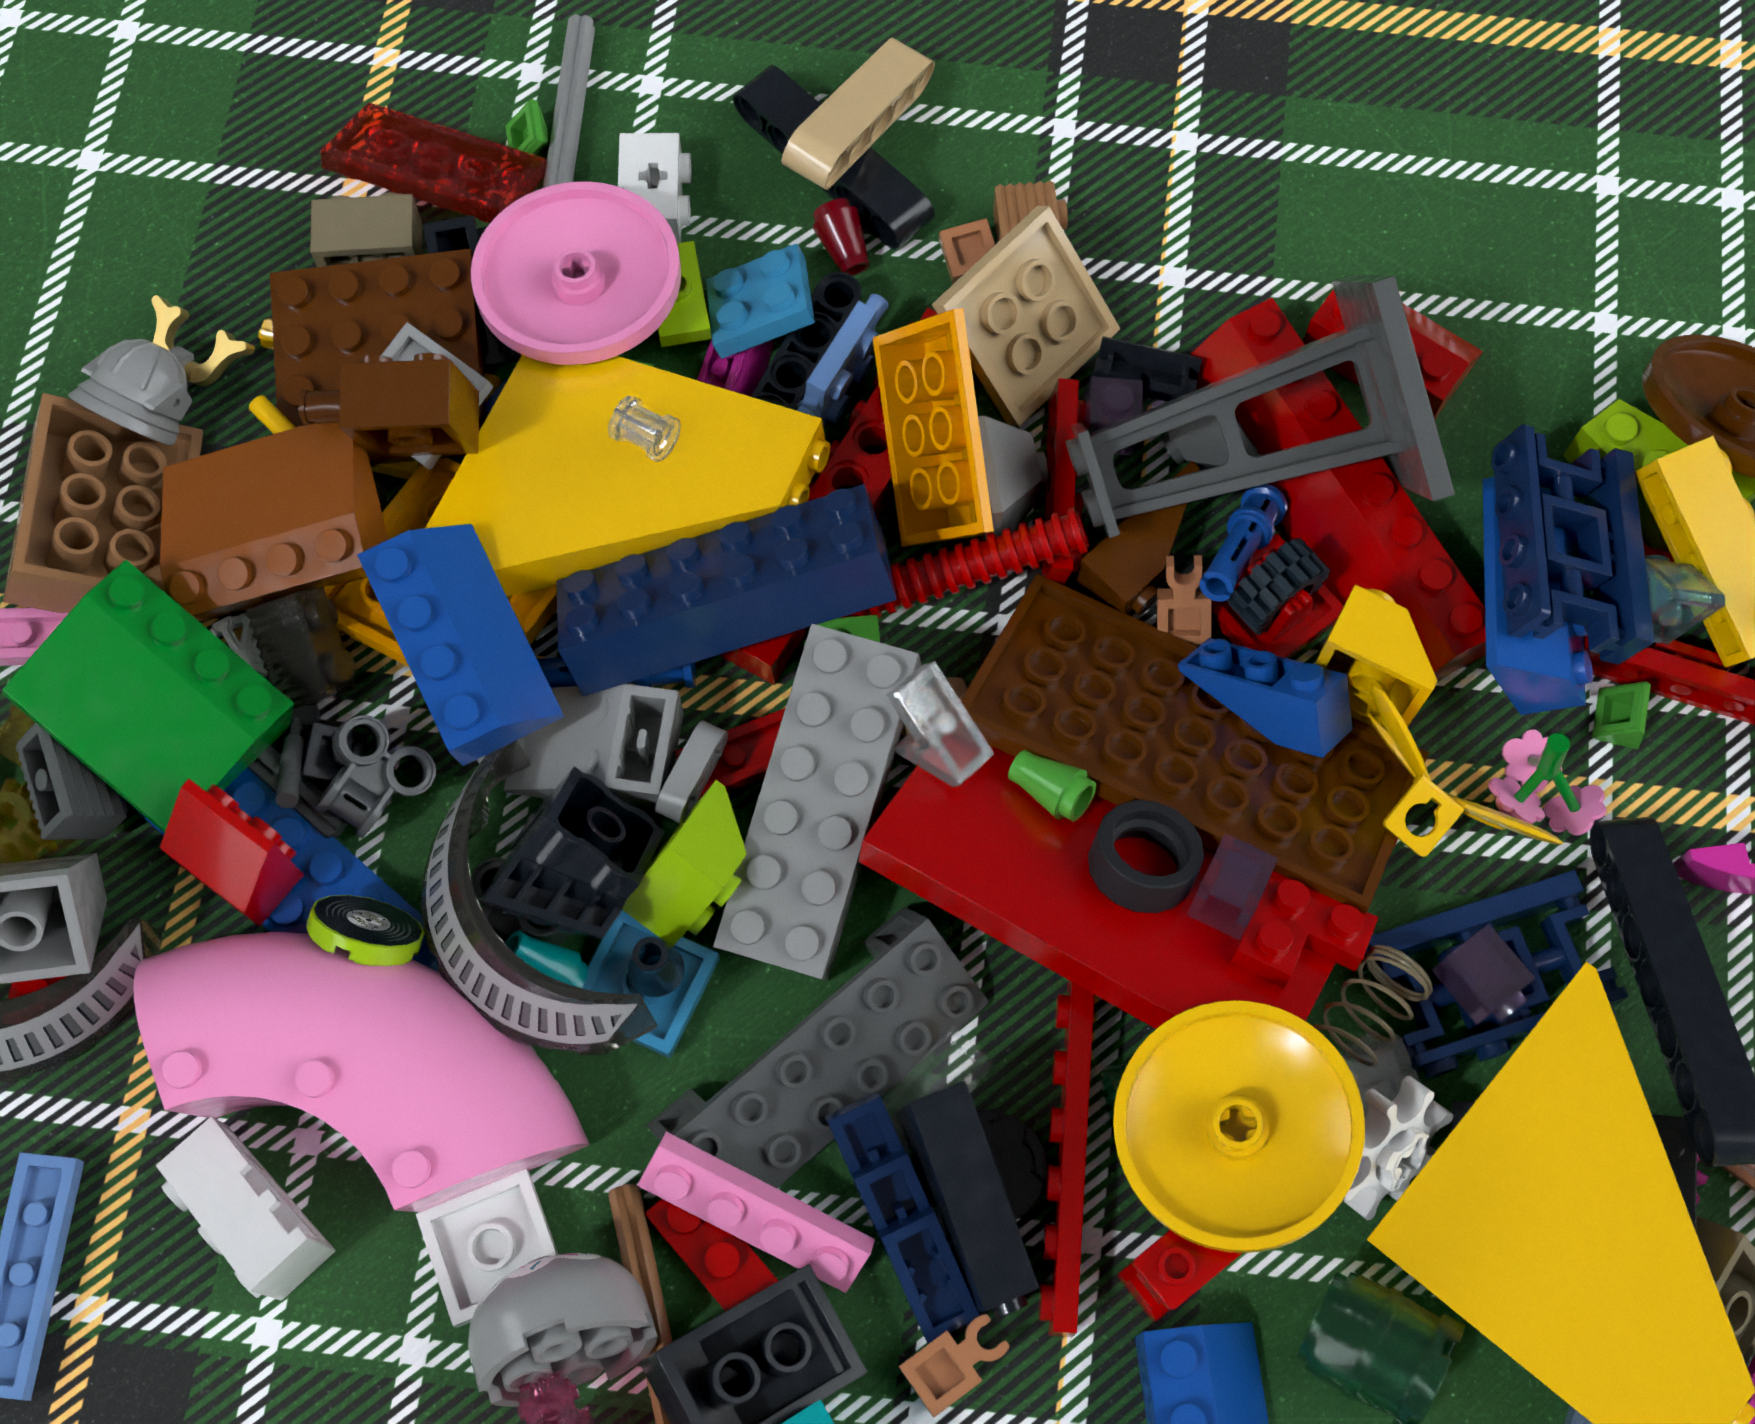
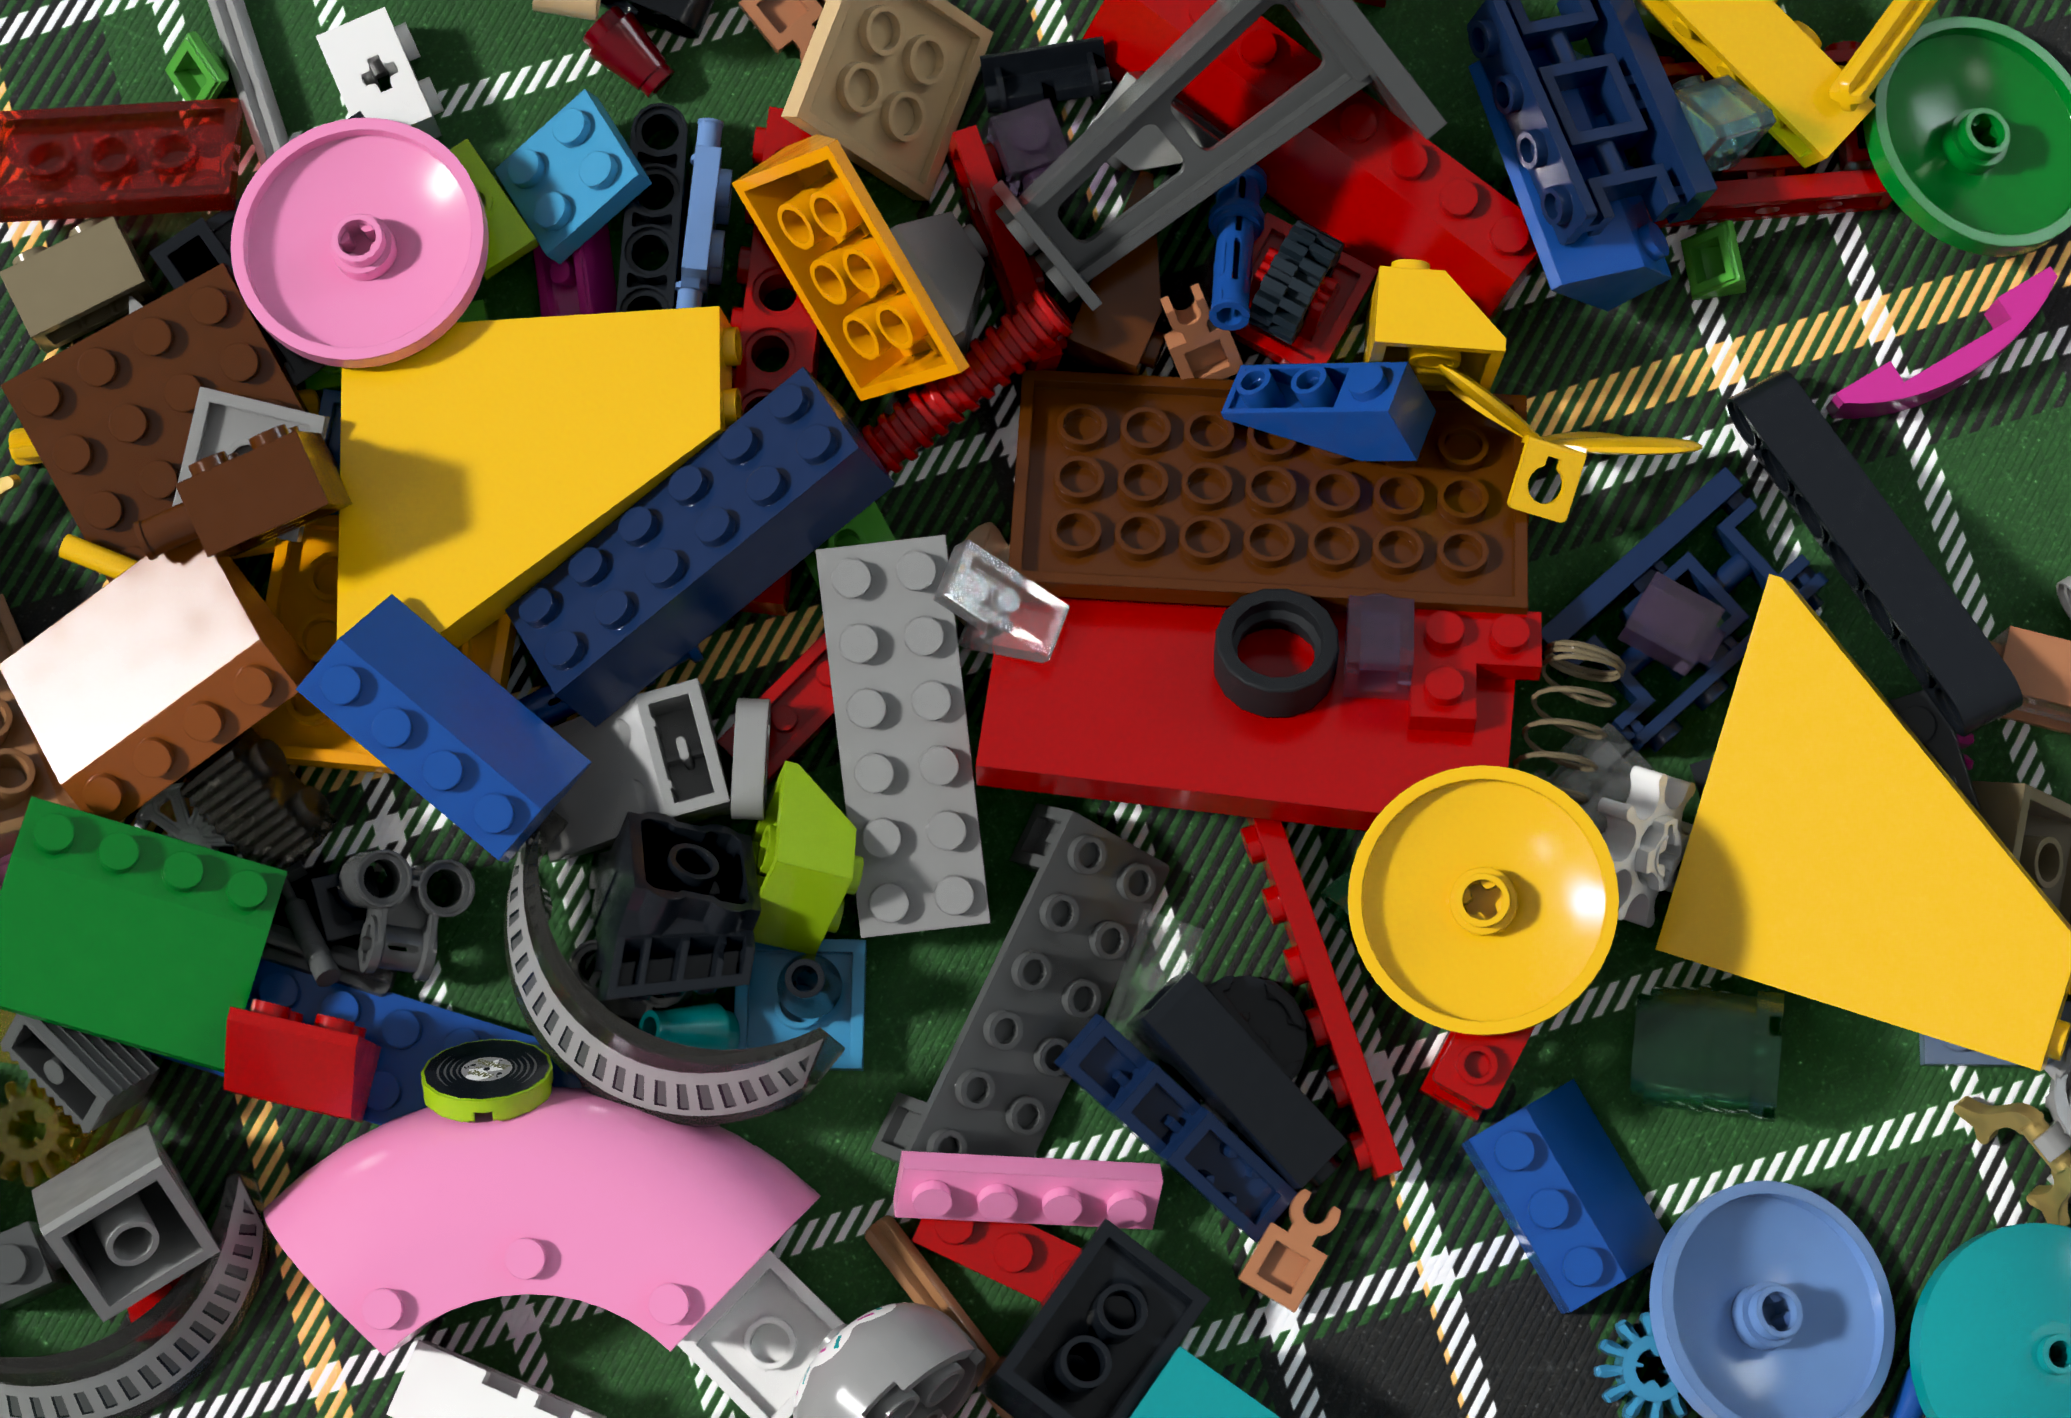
camera: 20 degrees left, 10 degrees up
(644, 428) = (531, 403): clear bush -> none
(1054, 785) = (1147, 614): bright green cone -> none
(1534, 763) = (1646, 359): bright pink plant -> none

